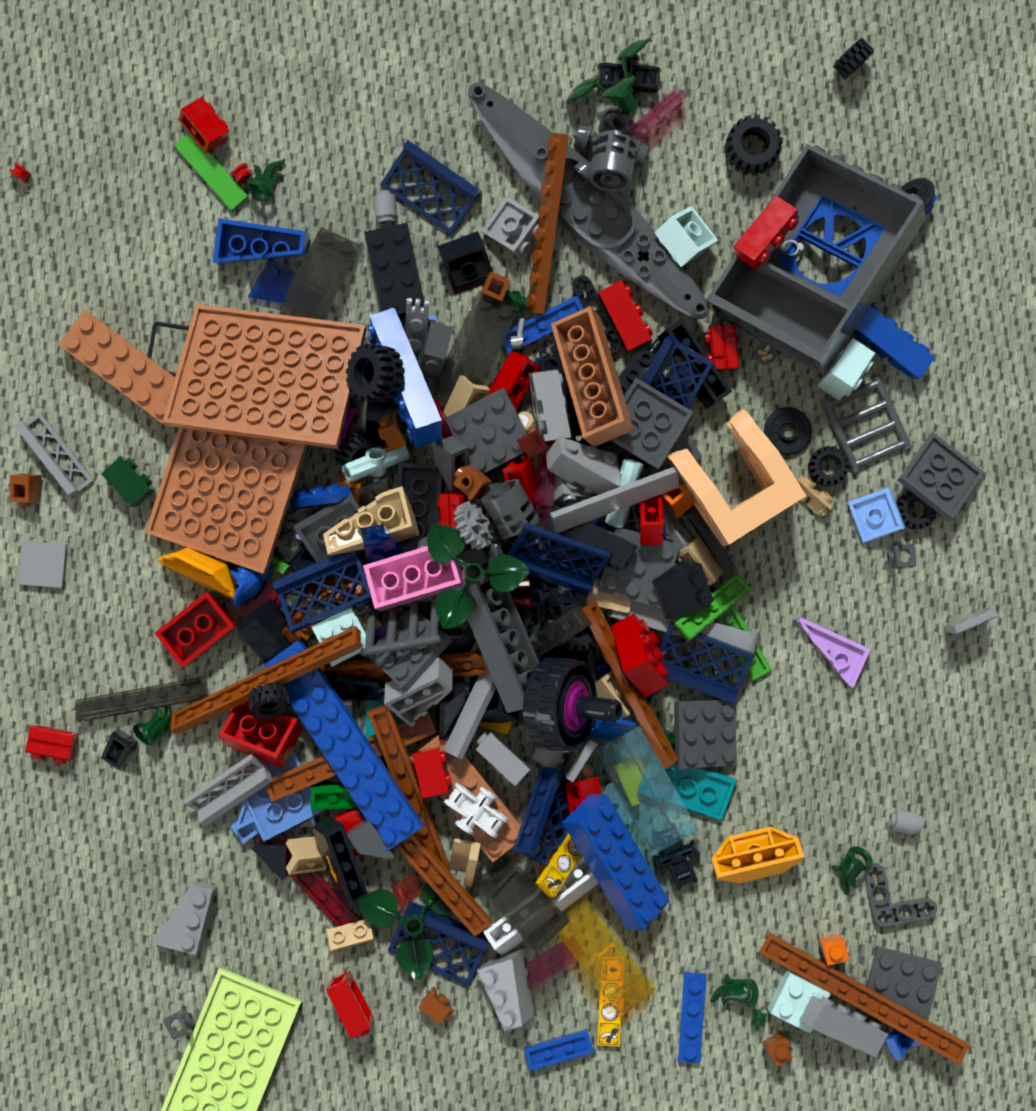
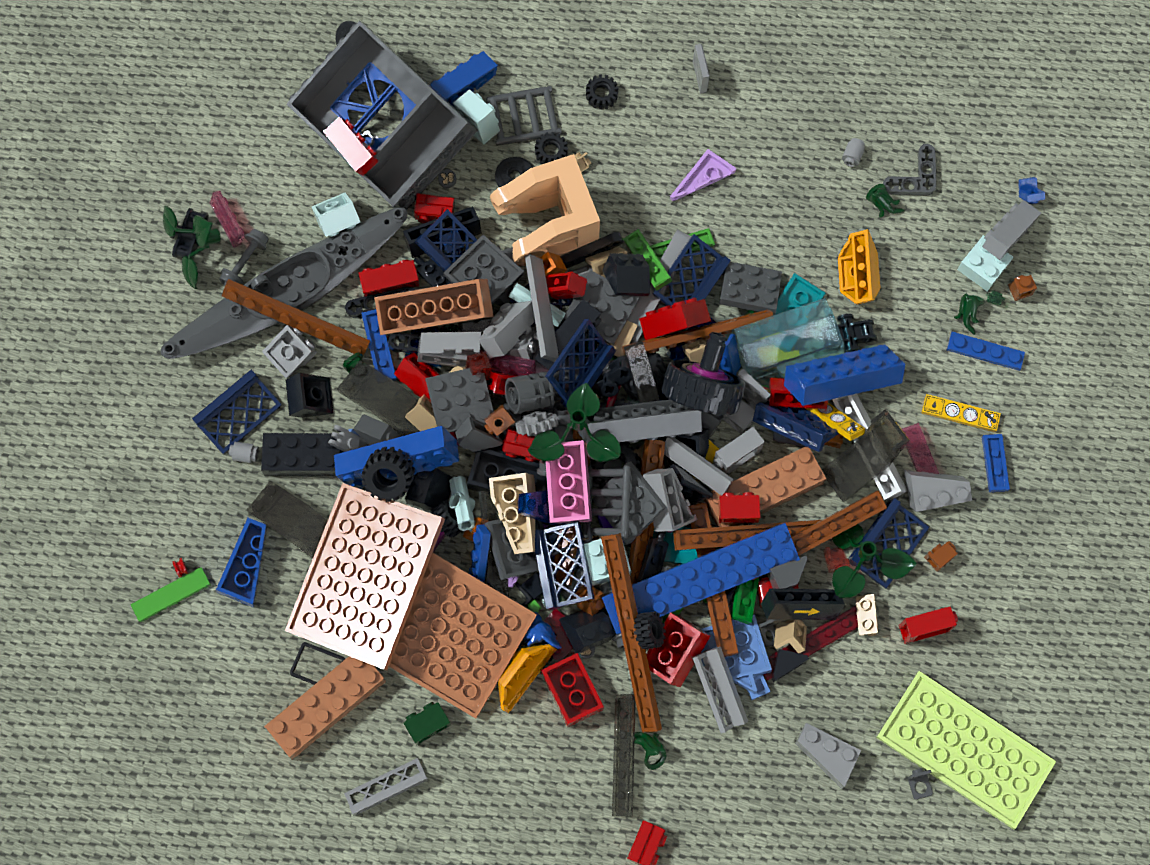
camera: 80 degrees left, 15 degrees down
(20, 172) = (123, 763): red bush -> none
(24, 488) = (405, 824): dark orange brick -> none
(42, 564) = (482, 820): light grey tile -> none
(118, 748) = (664, 785): black slope -> none
(204, 124) = (128, 589): red brick -> none
(263, 184) = (195, 551): dark green piece -> none
(272, 283) = (284, 560): clear blue wing -> none
(392, 431) = (440, 481): dark orange brick -> none
(464, 858) = (819, 501): tan panel -> none
(483, 814) = (779, 478): white axle -> none
(495, 286) = (336, 373): dark orange brick -> none
(517, 341) = (387, 365): light grey hand -> none
(604, 957) = (928, 403): clear yellow windscreen -> none
(613, 153) = (252, 253): dark grey cylinder -> none
(762, 129) = (278, 162): black tyre -> none
(833, 949) = (947, 227): orange brick -> none
(853, 58) = (226, 60): black tyre -> none
(864, 998) = (990, 212): dark orange plate -> none
(876, 515) = (599, 121): light blue plate -> none
(894, 559) = (635, 114): dark grey bracket -> none
(905, 979) = (986, 185): dark grey plate -> none
(940, 476) = (580, 67): dark grey plate -> none

